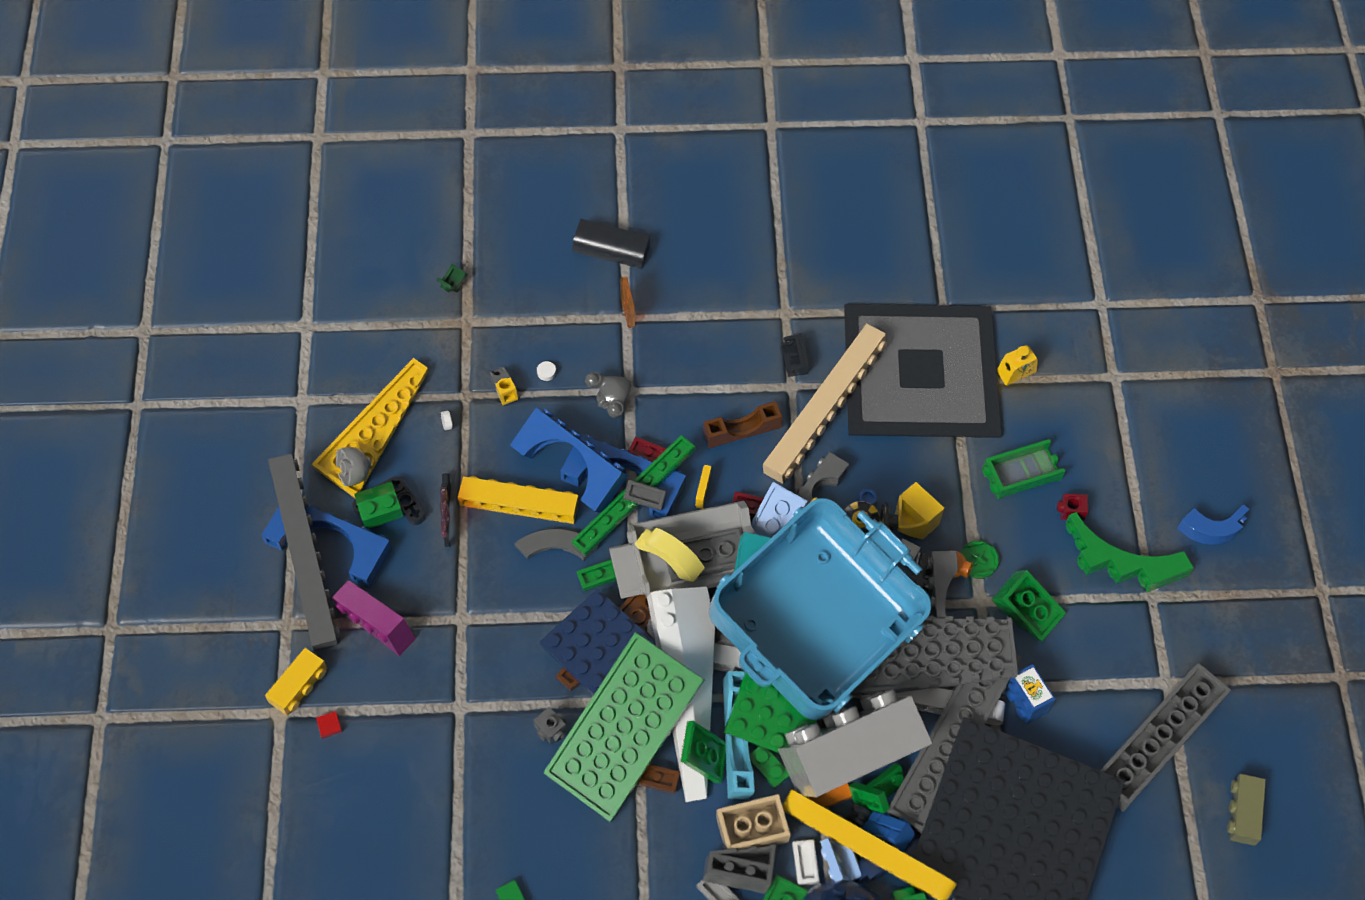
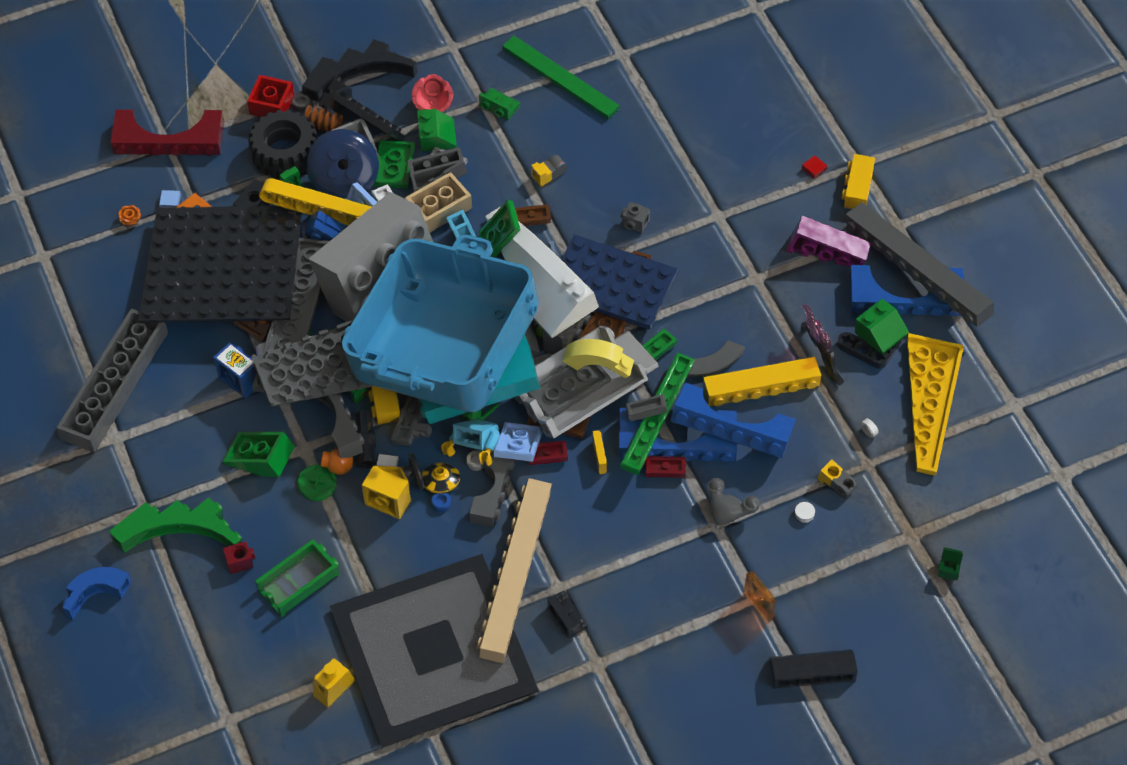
camera: 160 degrees right, 5 degrees down
(353, 465) = (922, 344): light grey cylinder -> none
(613, 830) = (548, 170): none -> leg
(623, 726) = (571, 219): plate -> none
(761, 420) = (572, 530): reddish brown arch -> none
(1246, 809) = (28, 353): olive brick -> none

